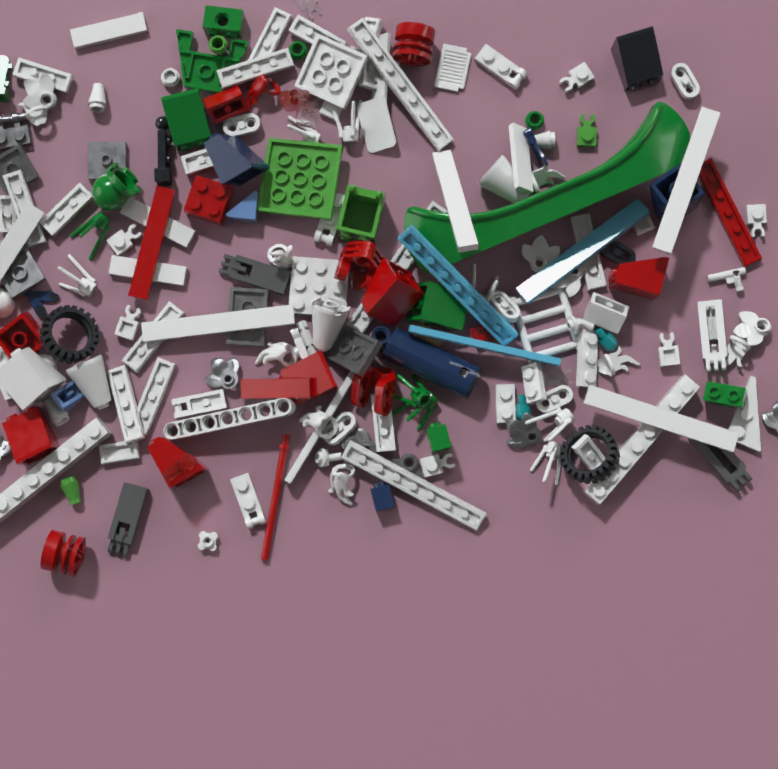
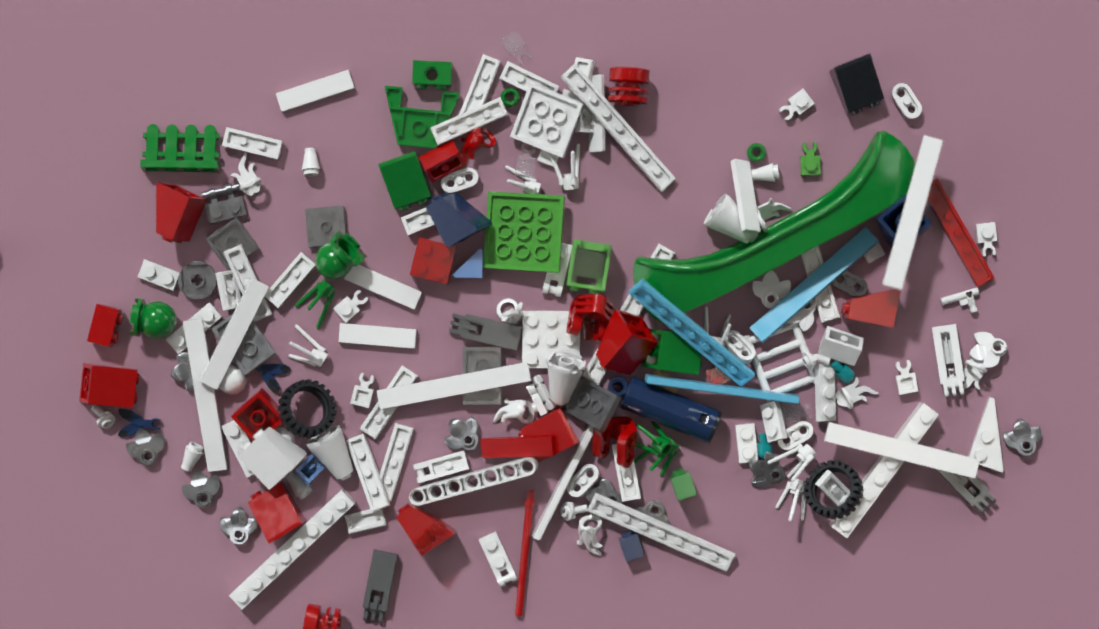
camera: 10 degrees left, 5 degrees up
(38, 90) = (249, 160): white plate -> none
(71, 489) = (321, 560): bright green cone -> none
(151, 243) = (379, 308): red tile -> none
(163, 174) = (384, 238): black plate -> none
(170, 77) = (382, 135): white plate -> none
(204, 536) = (457, 605): white plate -> none
(218, 45) = (427, 96): bright green cone -> none
(294, 97) = (511, 147): clear red axle -> none
(316, 420) = (561, 475): white piece -> none
(376, 124) = (596, 169): white sticker -> none
(433, 464) = (679, 509): white plate -> none
(452, 68) = (669, 103): white window -> none
(455, 201) = (683, 250): white tile -> none
(500, 66) = (718, 99): white plate -> none
(532, 142) = (755, 177): dark blue piece -> none
(725, 395) = (964, 420): green brick -> none

